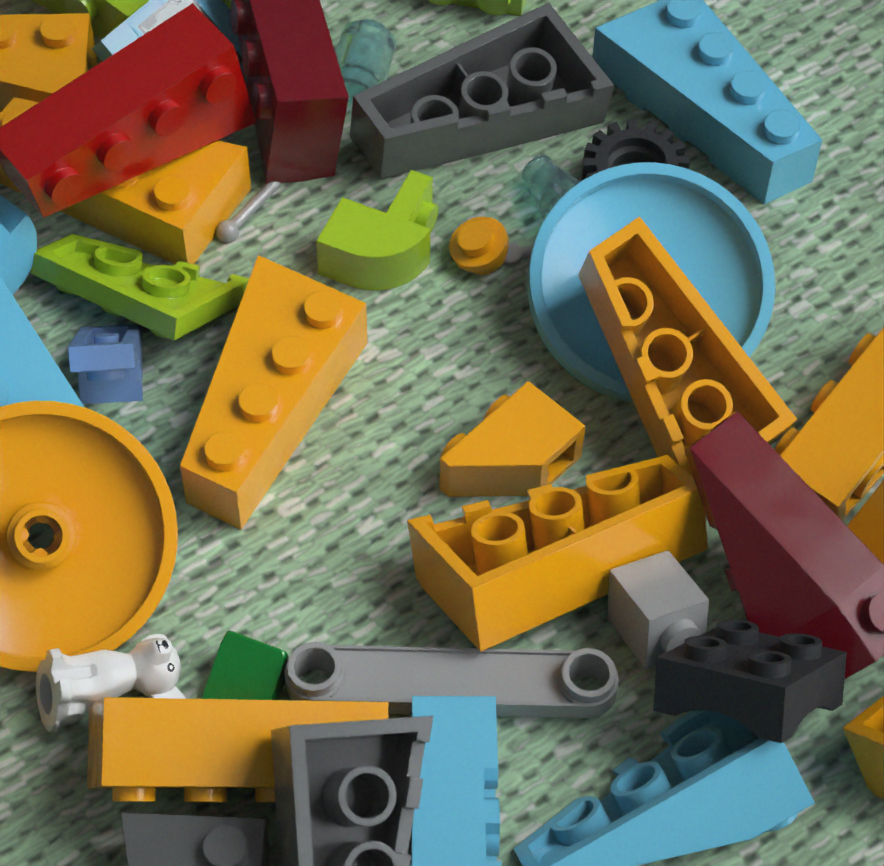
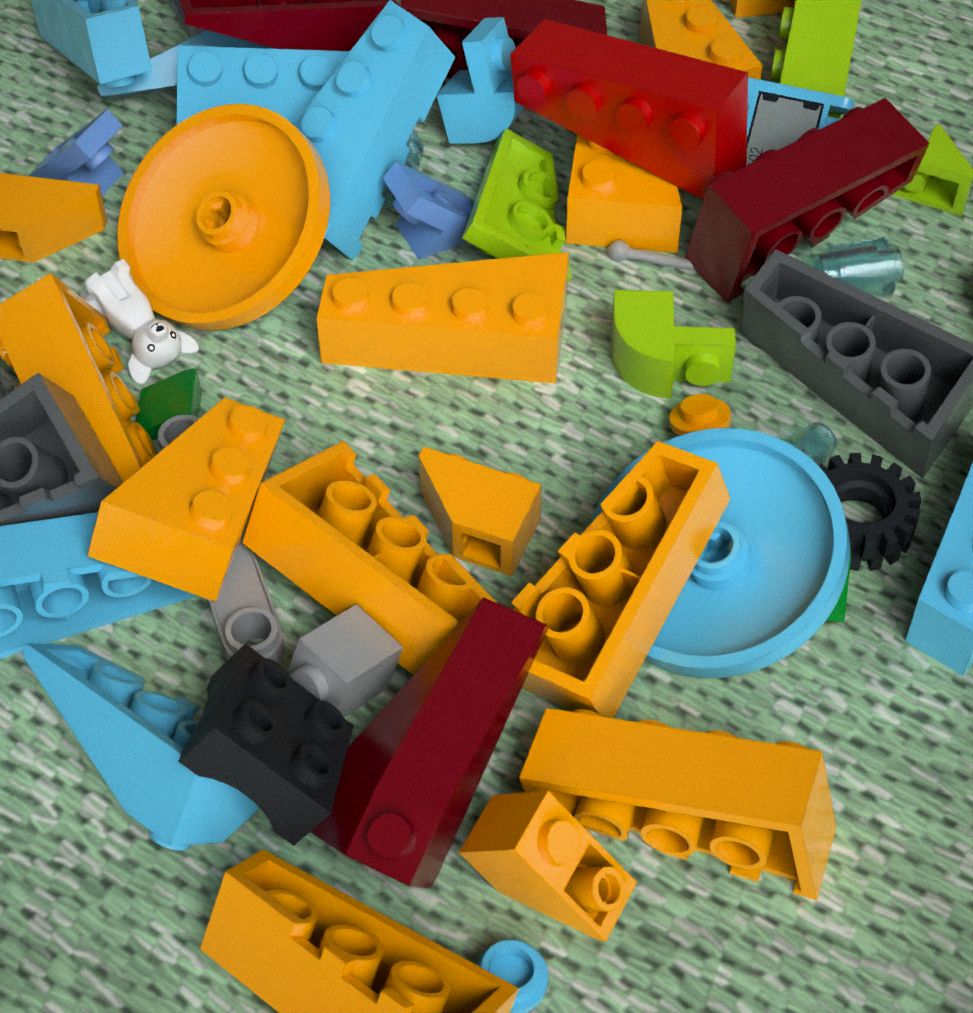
camera: 70 degrees right, 5 degrees down
(449, 653) = (190, 501): none -> light orange wedge

